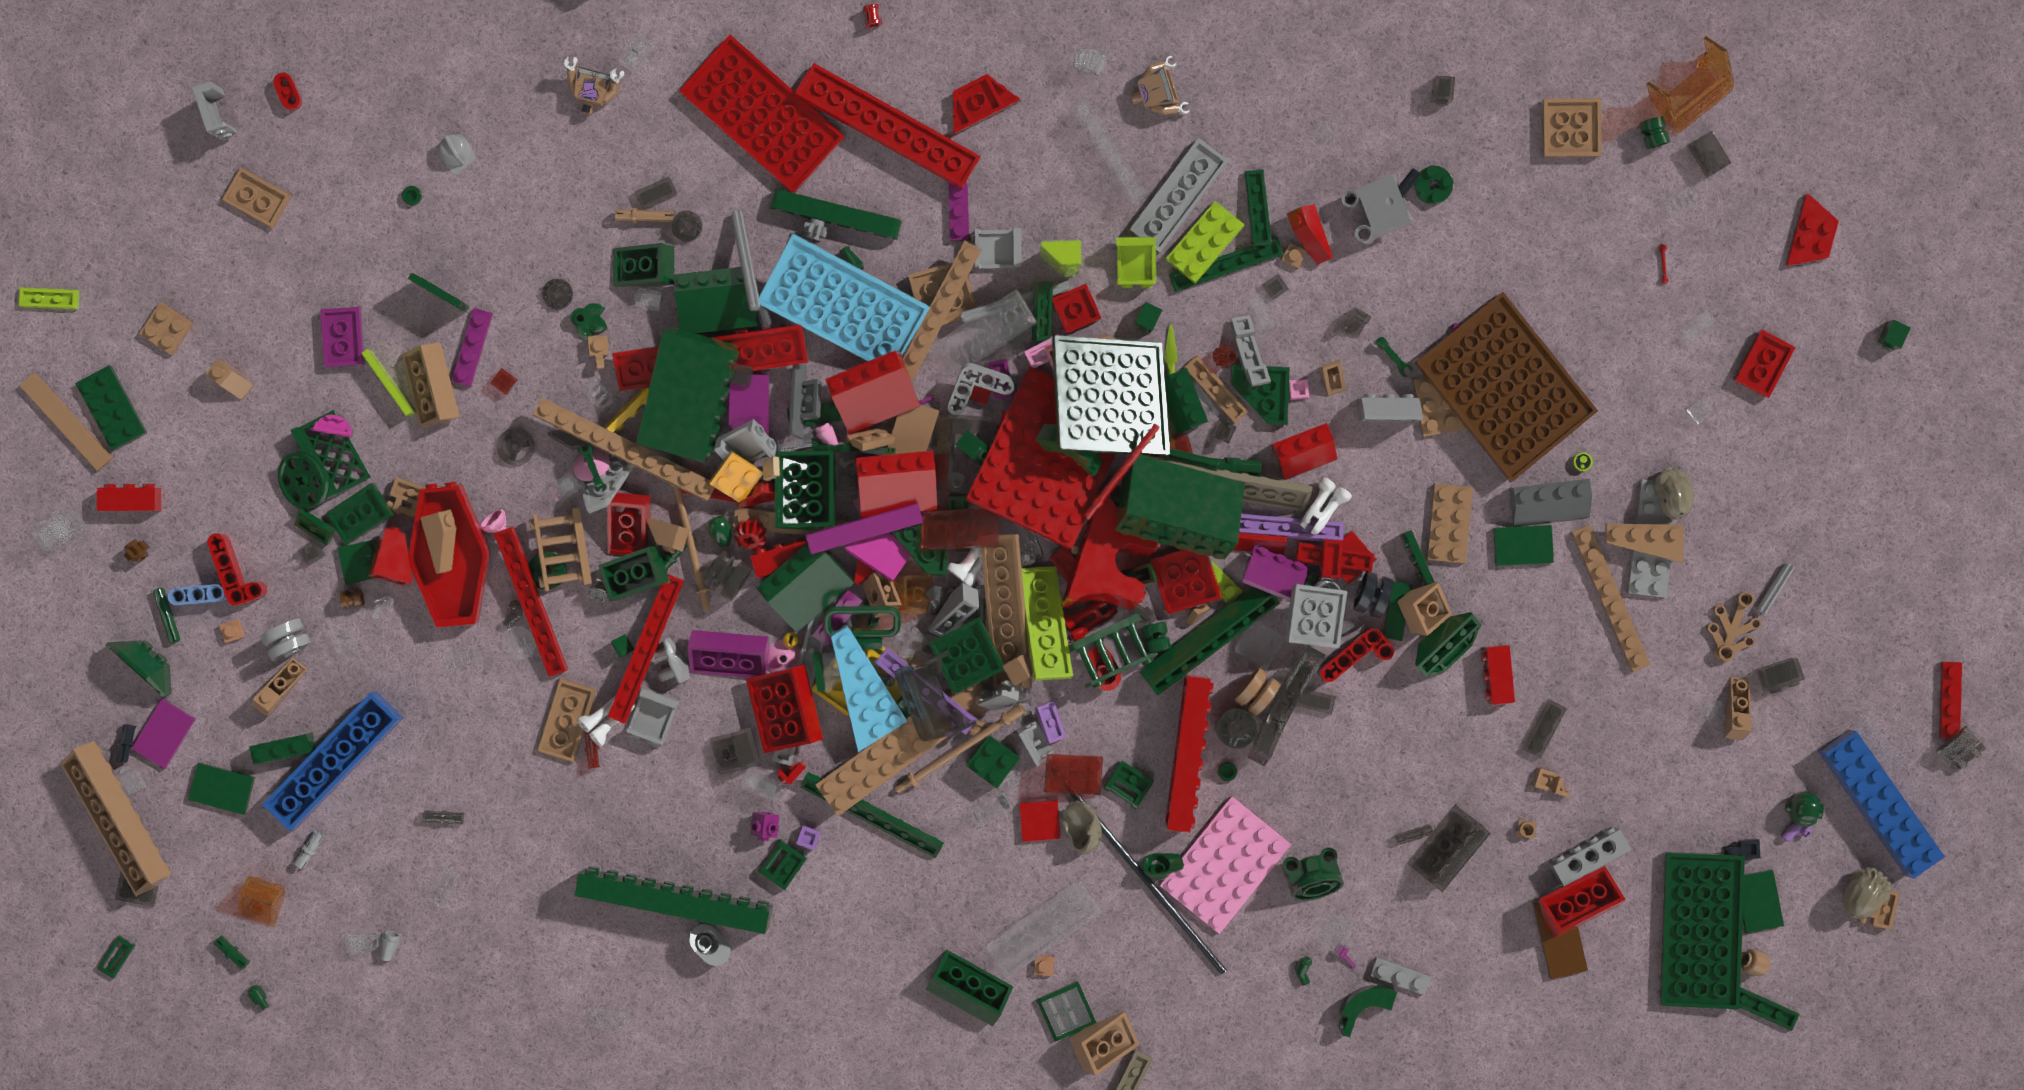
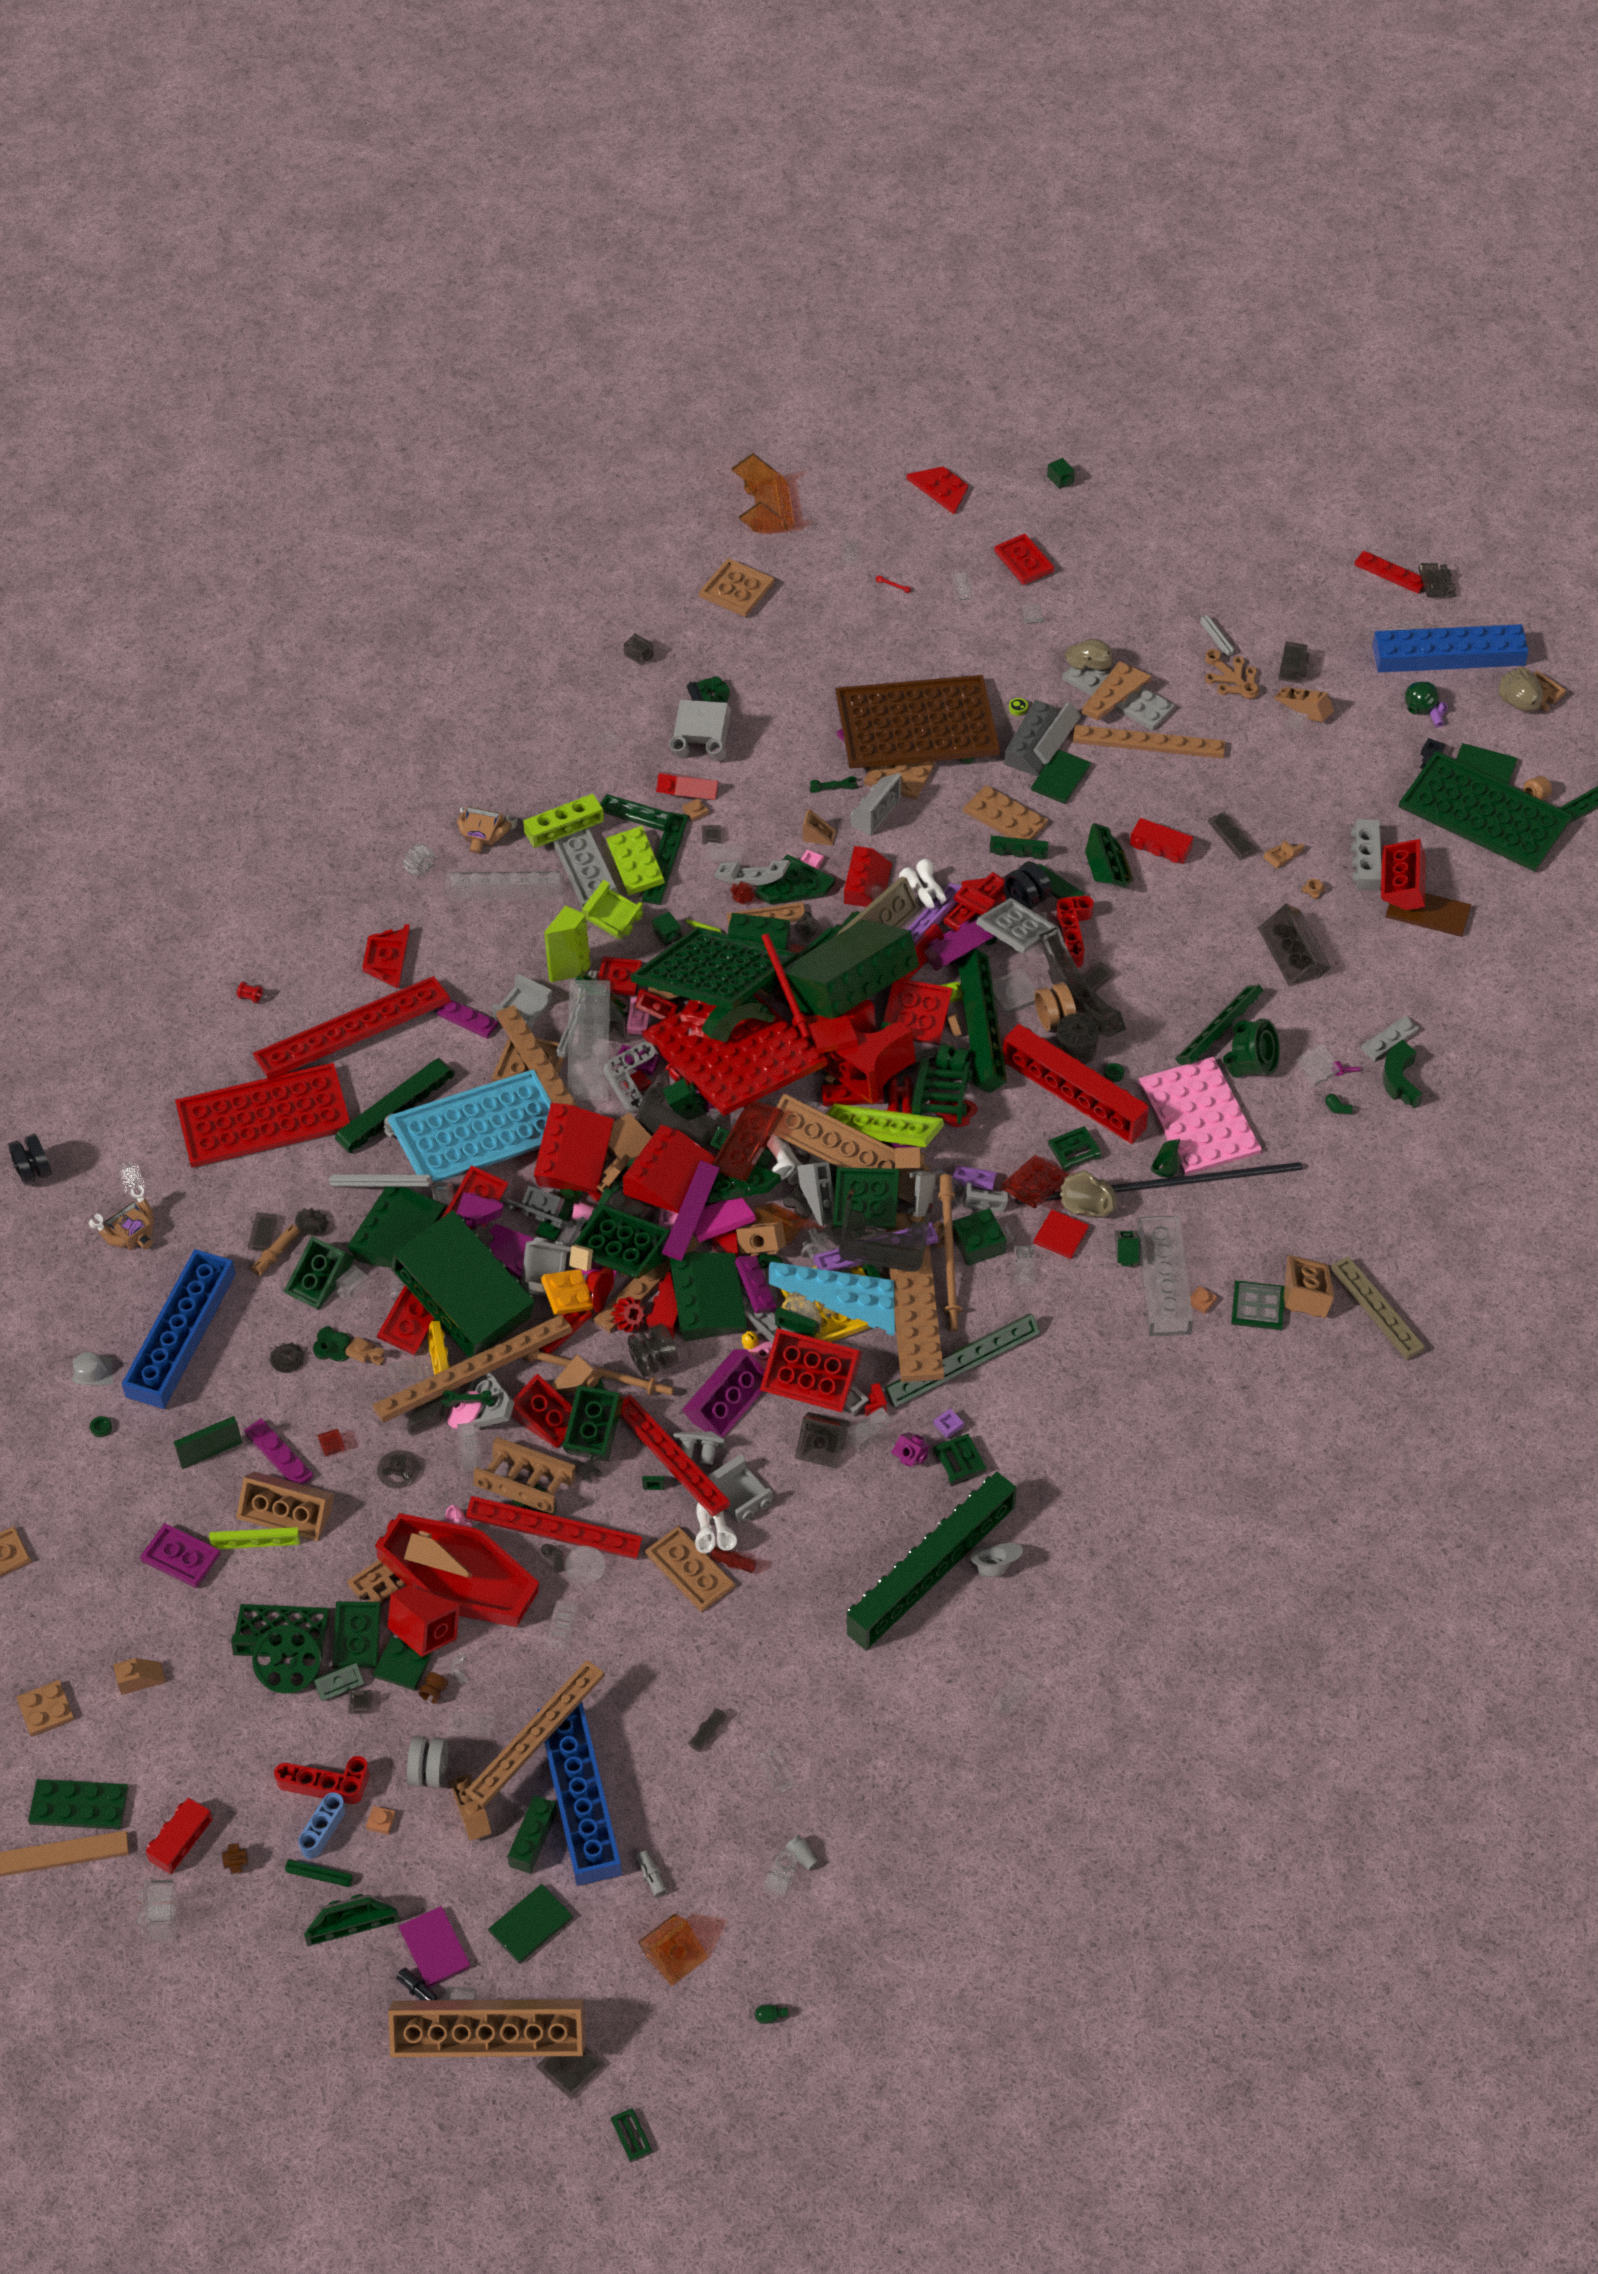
camera: 60 degrees left, 35 degrees down
(231, 952) = (706, 2011): dark green pin -> none
(333, 425) = (256, 1608): dark pink tile -> none
(346, 707) = (534, 1734): none -> medium nougat plate
(524, 195) = (178, 1329): none -> blue brick
(720, 531) = (606, 1340): dark green animal -> none
(759, 359) = (478, 1209): none -> magenta slope
(866, 638) = (795, 1259): dark green bar -> none
(969, 988) = (1185, 1367): dark green slope -> none
(1057, 880) = (1127, 1247): none -> dark green slope
(1096, 540) = (833, 1034): none -> red tile
(1208, 167) = (563, 820): none -> lime brick
(1327, 831) = (1219, 1025): none -> dark green plate
(1355, 322) = (782, 793): clear smoke panel -> none
(1413, 834) = (1264, 967): clear smoke axle -> none
(1425, 608) = (1066, 860): medium nougat slope -> none
(1567, 516) = (1057, 733): none -> light grey tile
(1654, 132) = (782, 538): dark green wheel -> none
(1709, 154) = (826, 516): clear smoke hinge -> none

